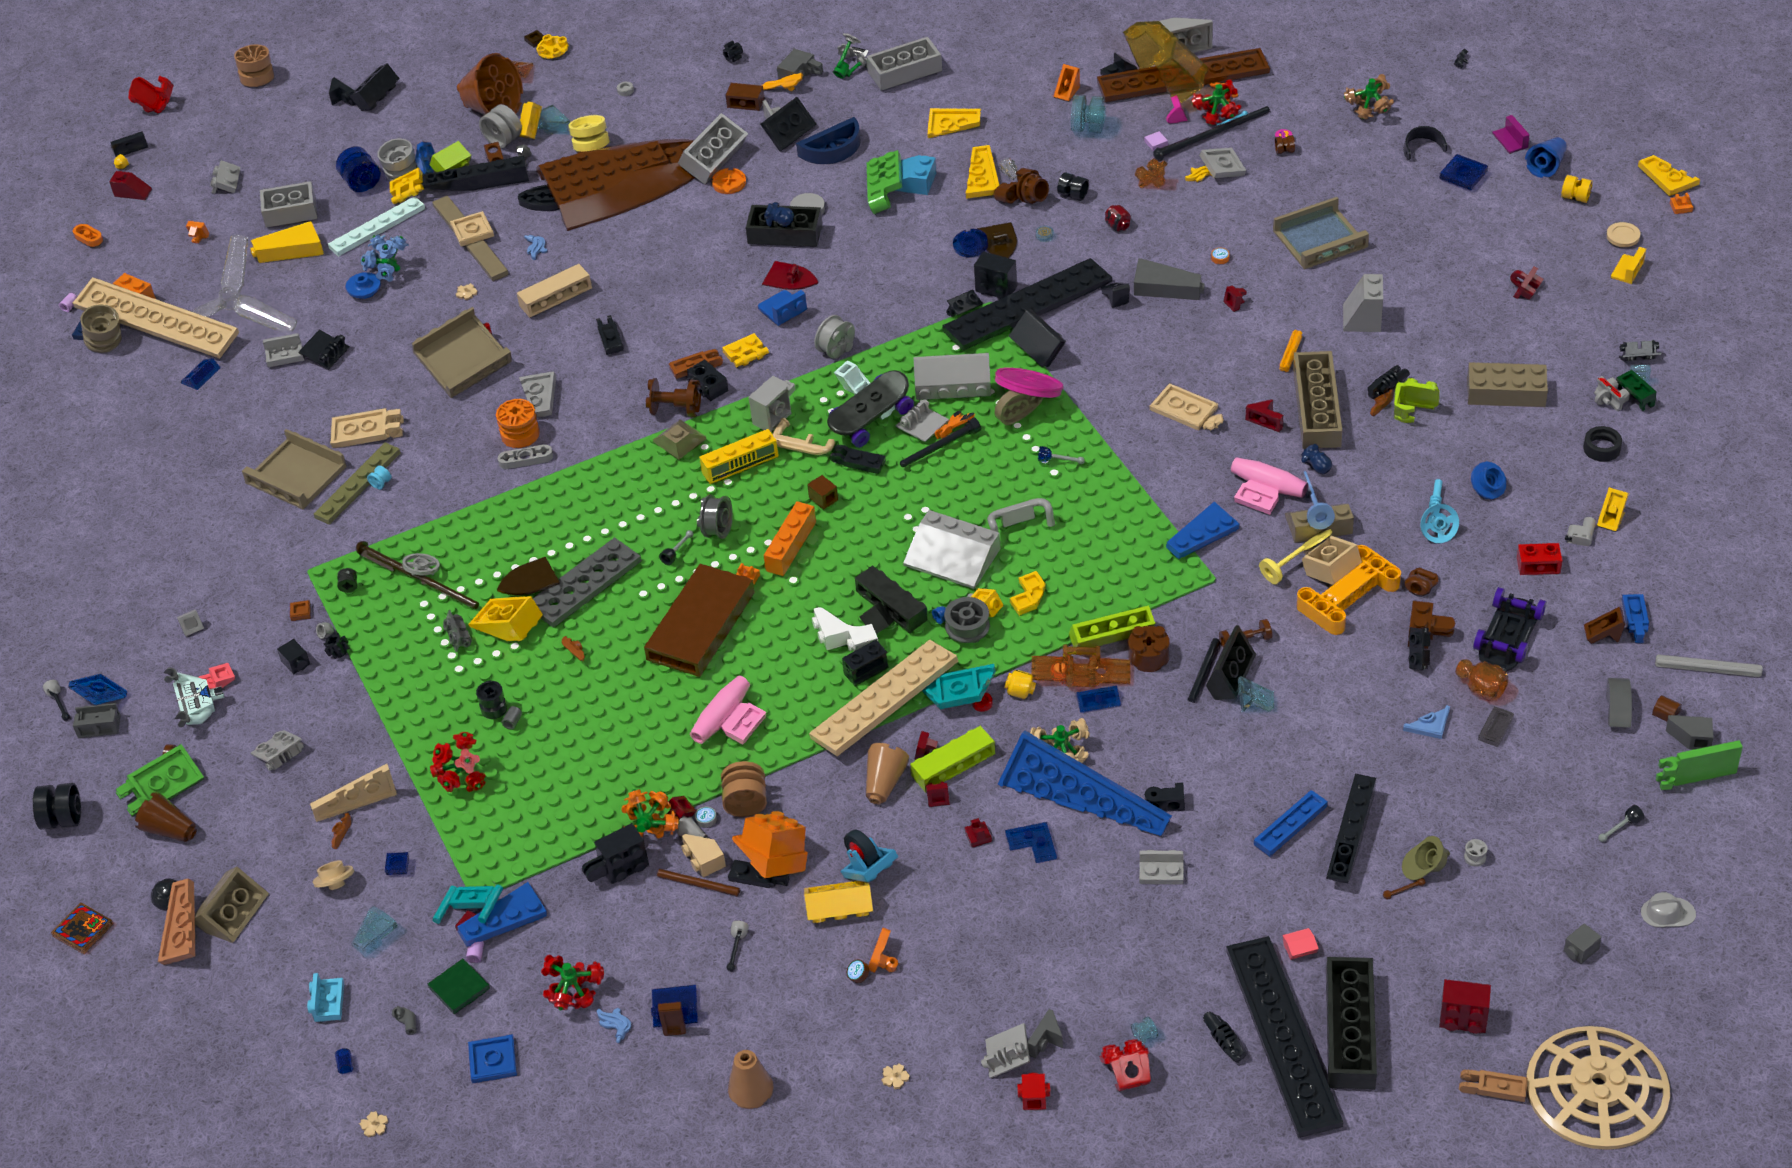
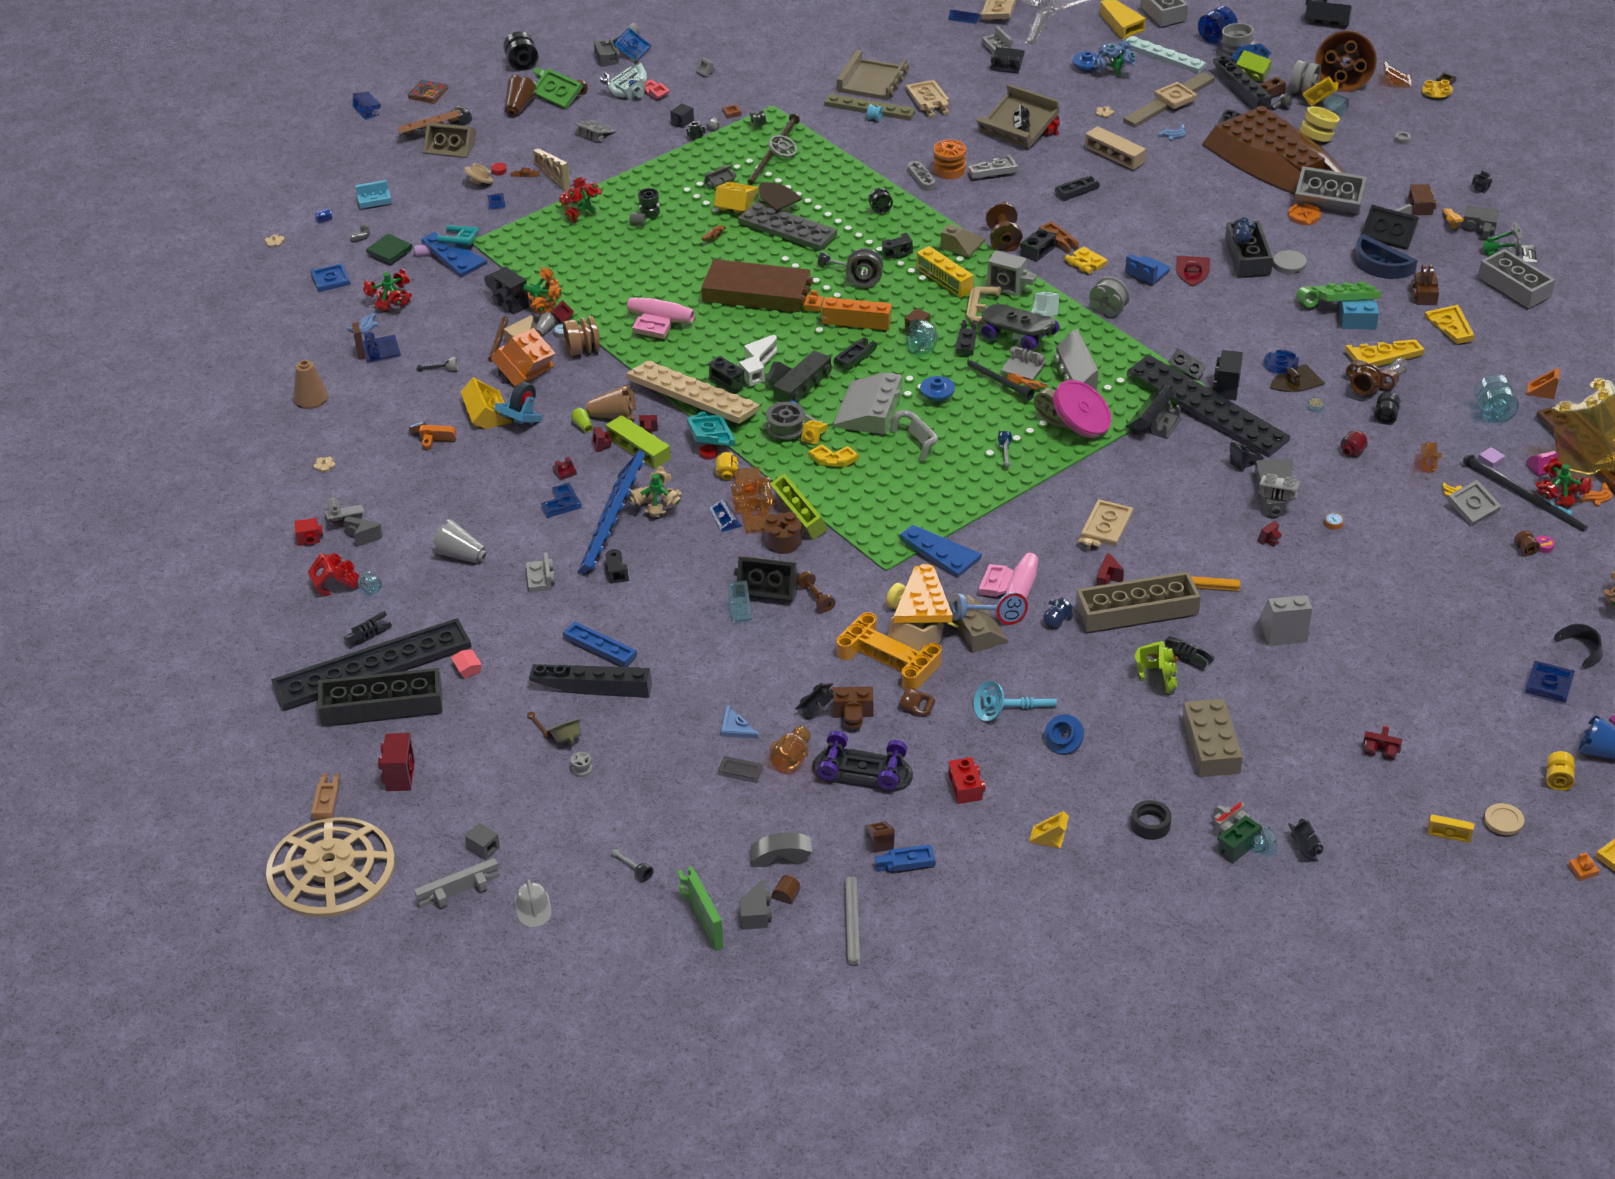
camera: 75 degrees right, 5 degrees down
(85, 1000) = (364, 104): none -> clear blue hinge
(317, 858) = (498, 169): none -> red tile
(372, 930) = (436, 204): clear light blue slope -> none
(406, 185) = (1211, 53): yellow plate -> none
(466, 348) = (1021, 119): none -> black hinge
(579, 490) = (880, 200): none -> black wheel
(671, 490) = (897, 247): none -> black leg
(856, 490) = (922, 336): none -> clear light blue cylinder
(857, 551) = (854, 353): none -> black hinge
(892, 122) = (1425, 286): none -> reddish brown brick
(894, 807) = (582, 420): none -> lime cone
(945, 491) = (937, 388): none -> blue piece
(1098, 938) = (457, 543): none -> light grey cone
(1184, 270) = (1271, 481): none -> light grey hinge
(1294, 544) = (923, 599): none -> light orange wing
(1318, 233) = (1398, 584): panel -> none
(1581, 534) = (1012, 813): light grey piece -> none
(1633, 953) = (457, 883): none -> light grey hinge

